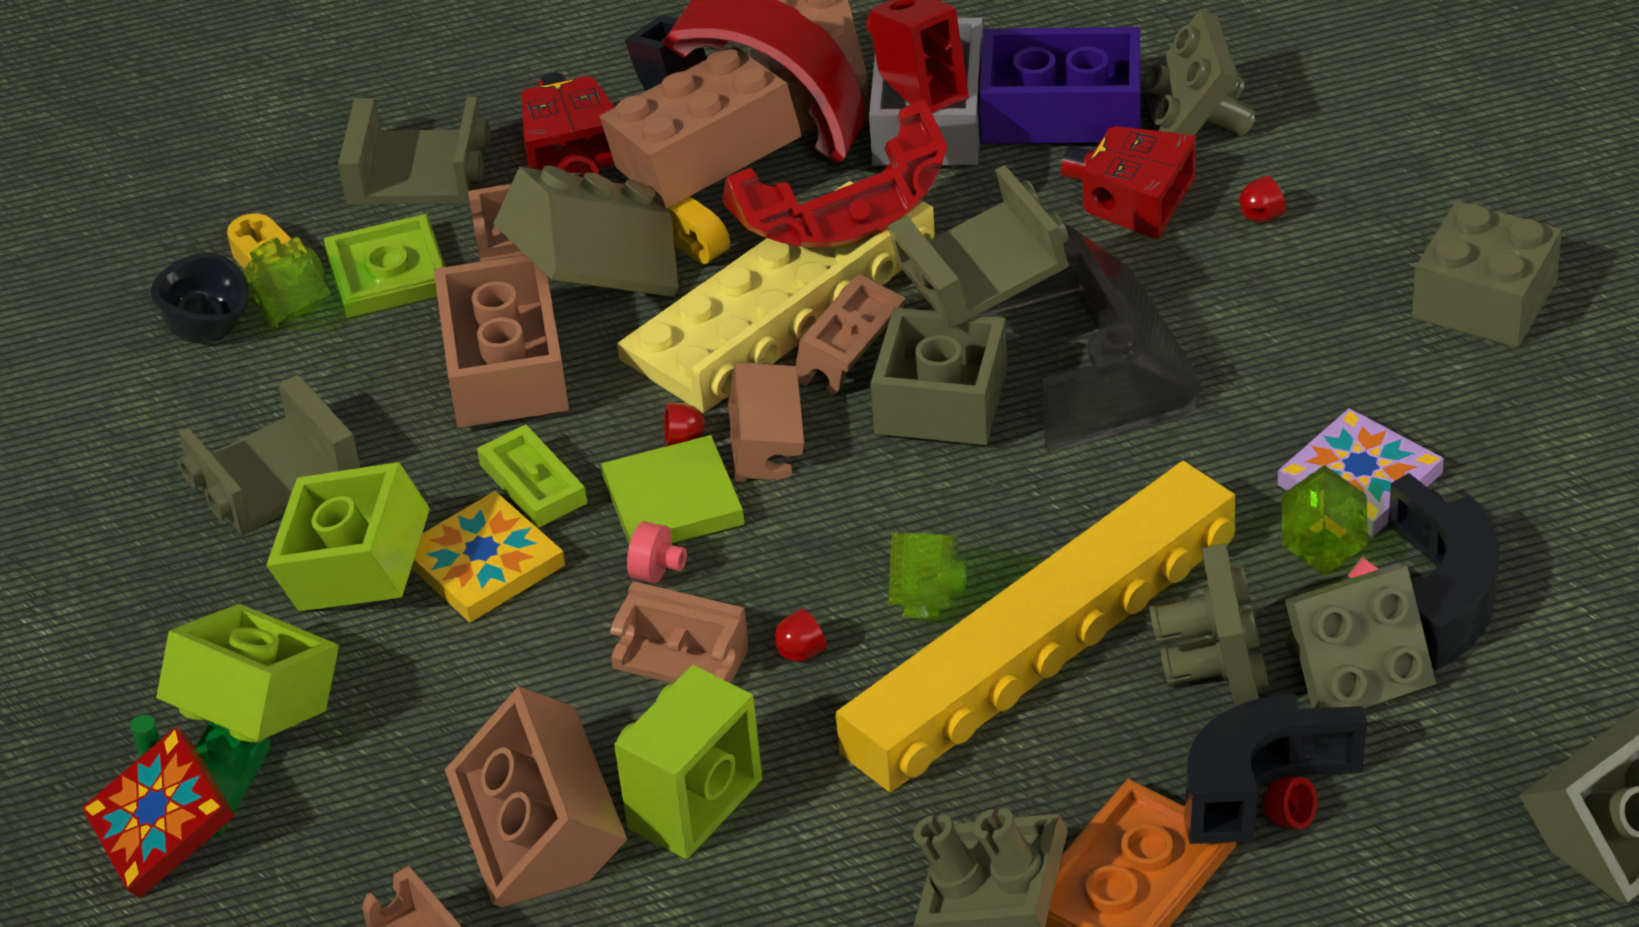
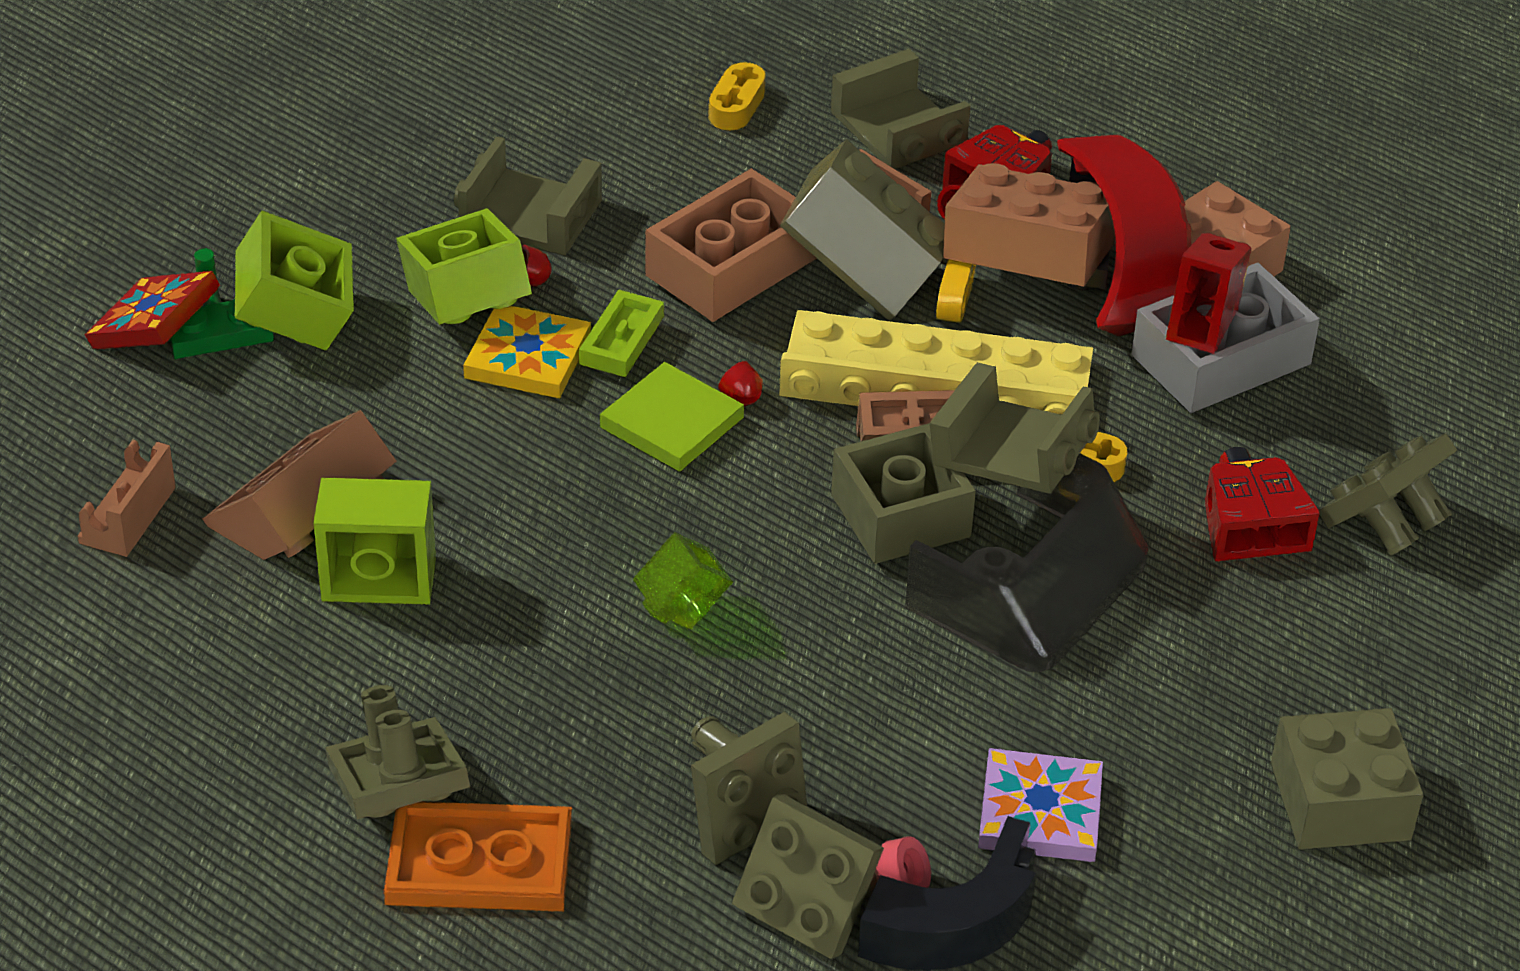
camera: 50 degrees right, 0 degrees up
(201, 297) = (644, 83): black helmet -> none
(285, 280) = (696, 112): clear neon green brick -> none
(385, 265) = (777, 152): lime tile -> none
(653, 552) = (590, 429): coral tile -> none
(672, 630) = (517, 488): nougat hinge -> none
(764, 420) = (778, 419): nougat hinge -> none
(799, 637) = (573, 551): red hinge -> none
(852, 210) = (1034, 356): red windscreen -> none
(1034, 627) = (692, 676): yellow brick -> none
(1058, 83) = (1310, 408): dark purple brick -> none
(1258, 745) = (631, 857): black arch -> none
(1262, 200) = (1305, 597): red hinge -> none
(1290, 794) = (606, 919): red hinge -> none
(1324, 520) = (943, 798): clear neon green brick -> none

